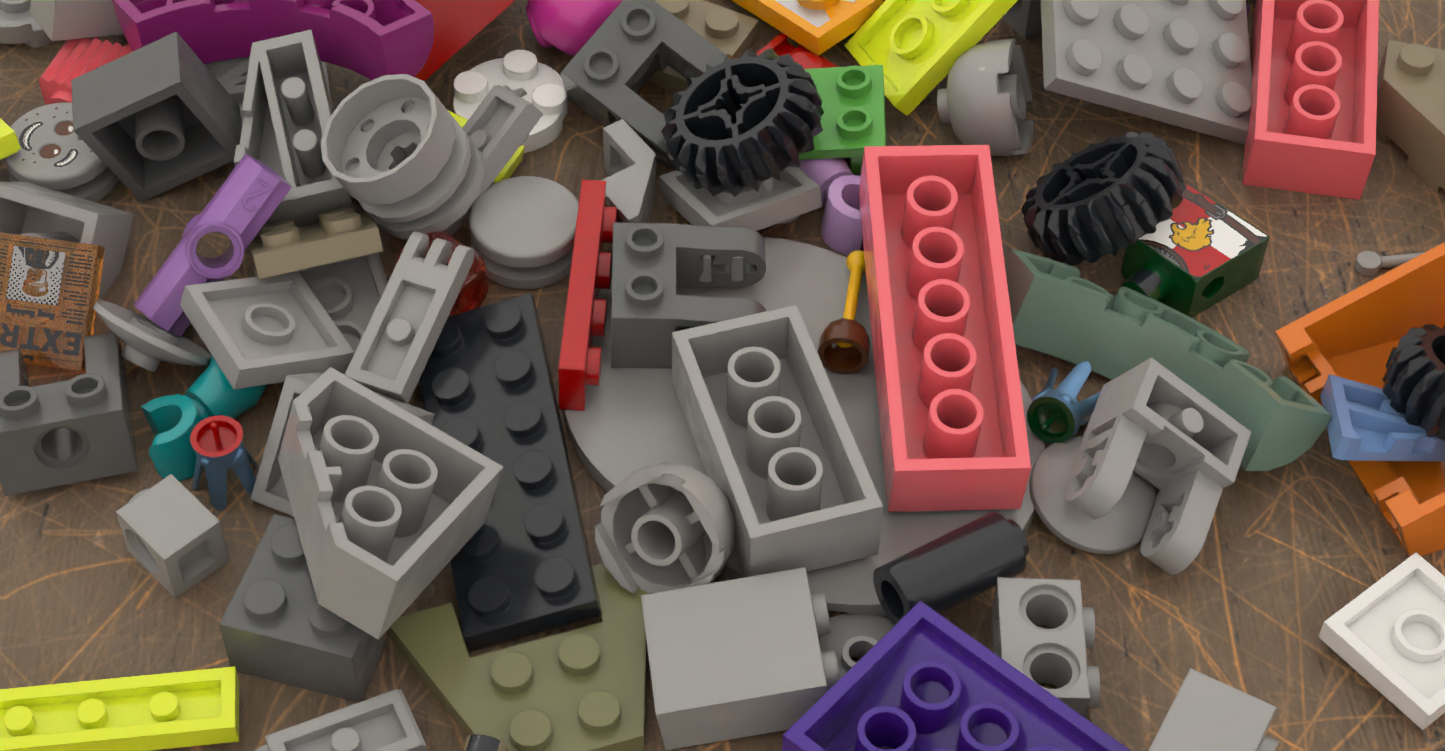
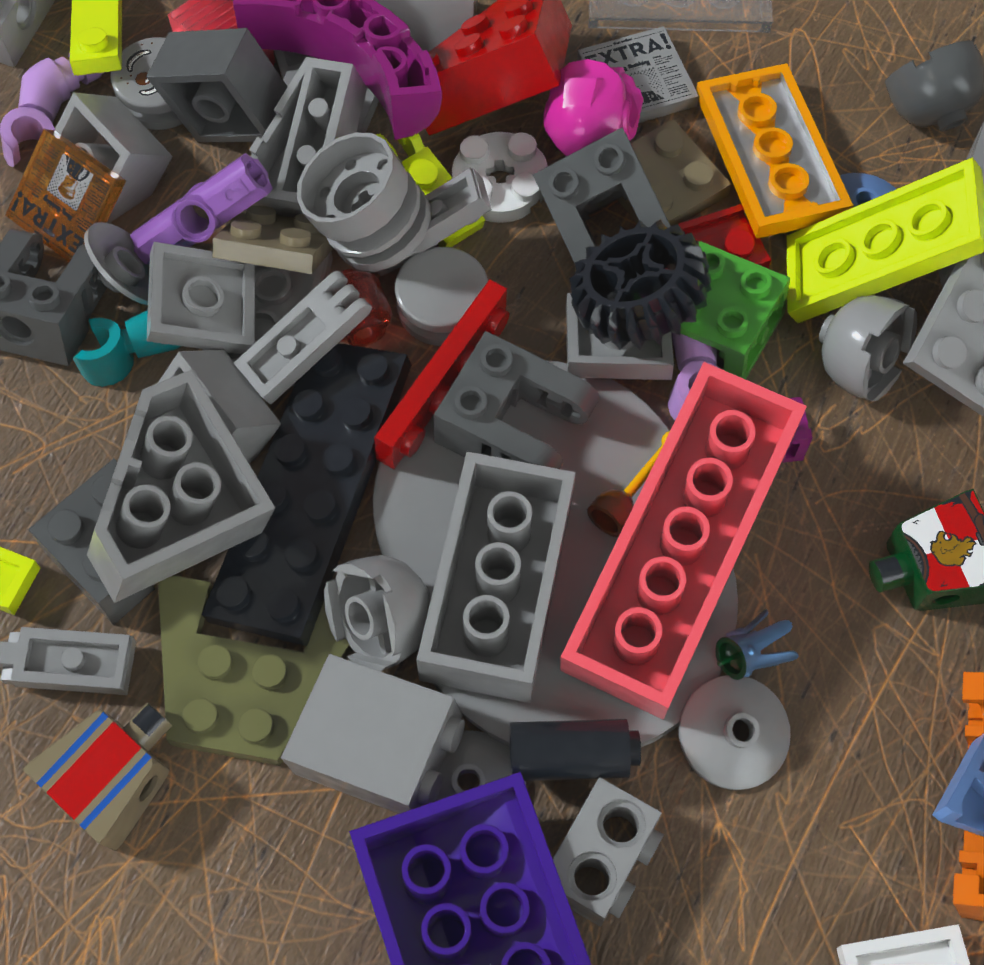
camera: 30 degrees right, 15 degrees up
(173, 535) = (55, 433): light grey brick -> none
(219, 448) = (117, 381): piece -> none
(631, 173) = (537, 301): light grey slope -> none
(1103, 198) = (897, 482): black gear -> none
(1115, 333) = (867, 641): sand green brick -> none
(1171, 439) = (812, 723): light grey brick -> none

